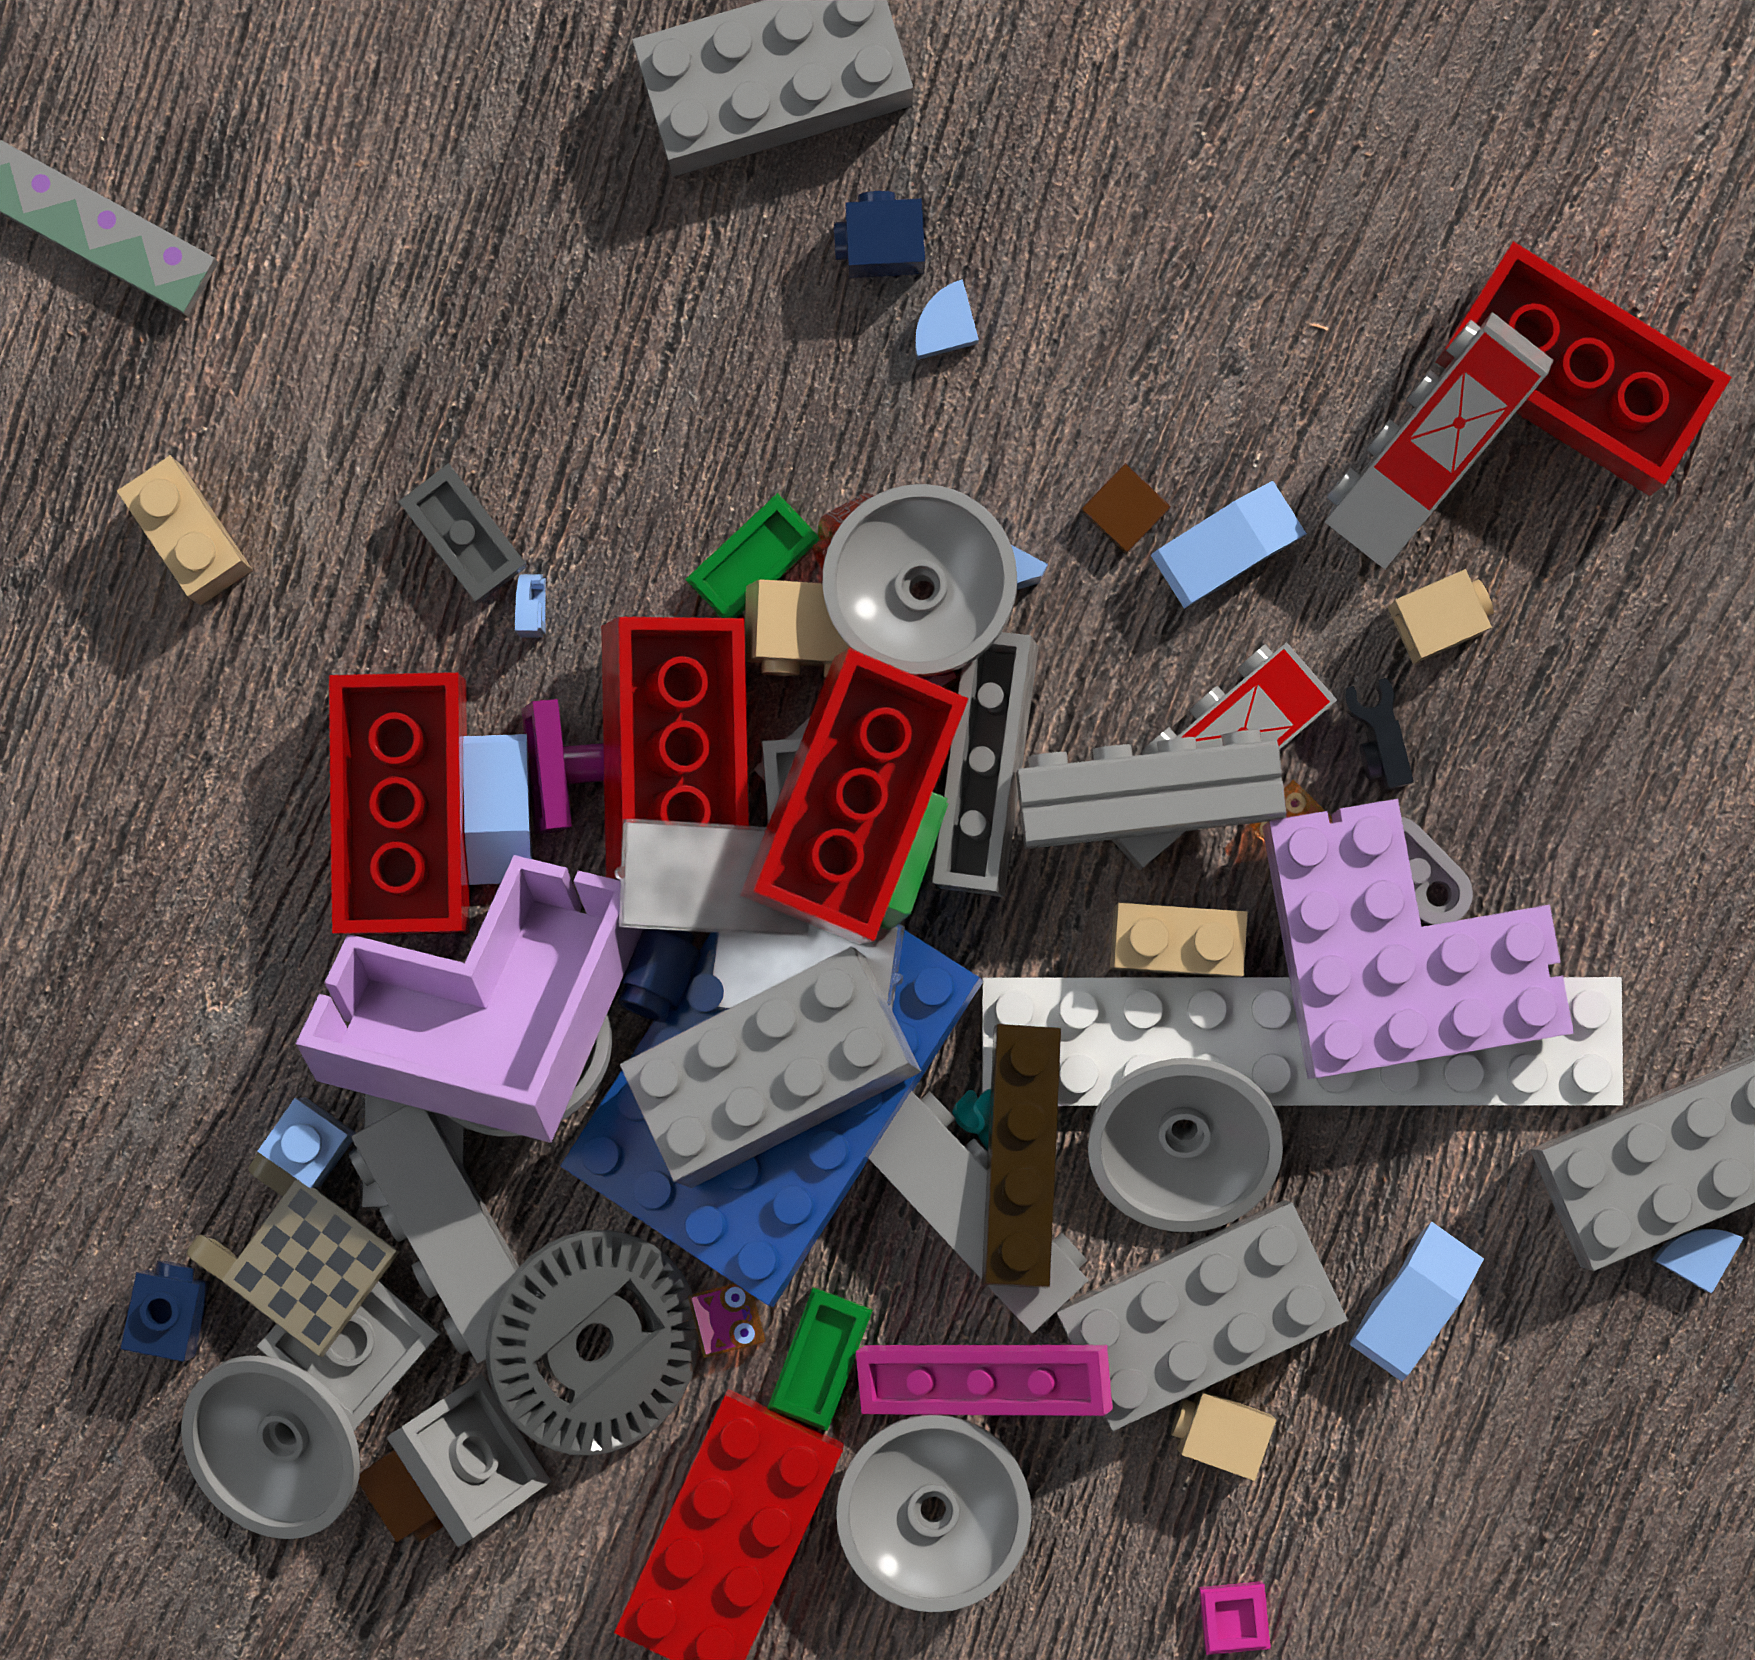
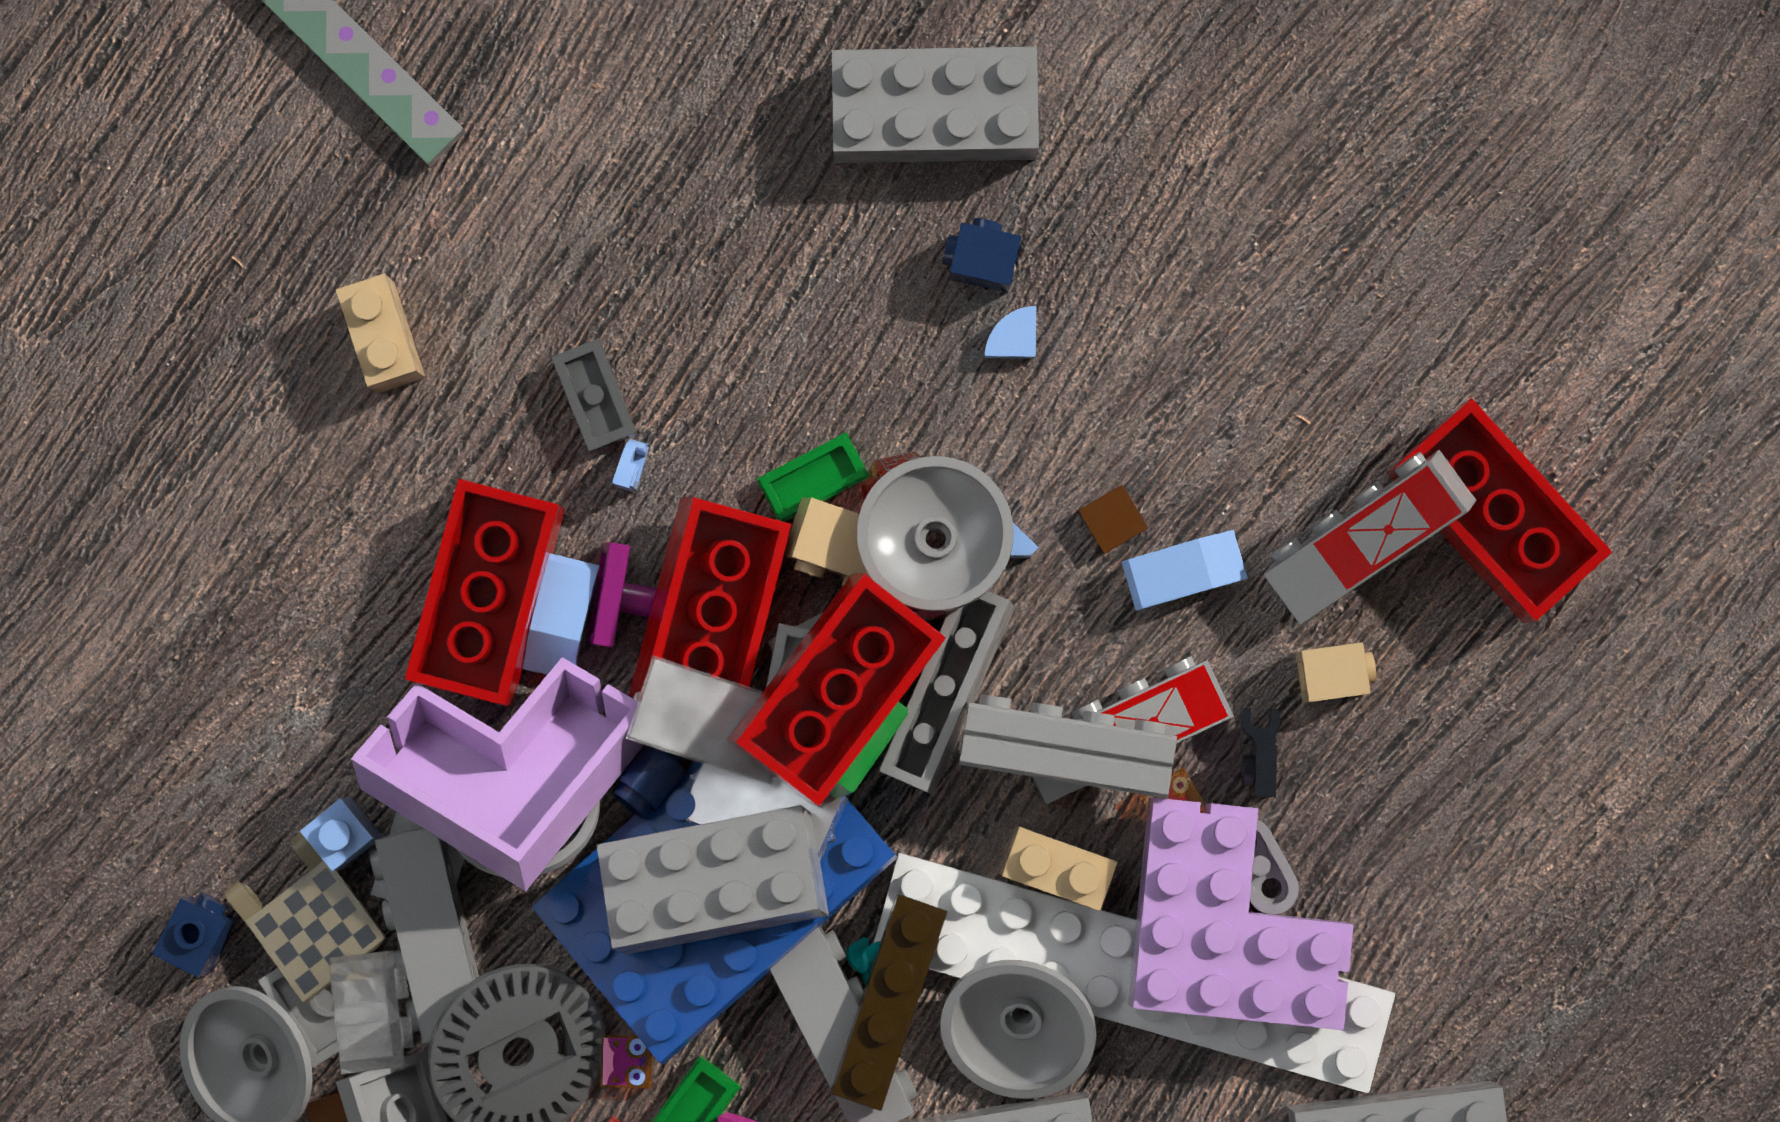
camera: 20 degrees right, 0 degrees up
(402, 1344) = (368, 1011): none -> clear brick

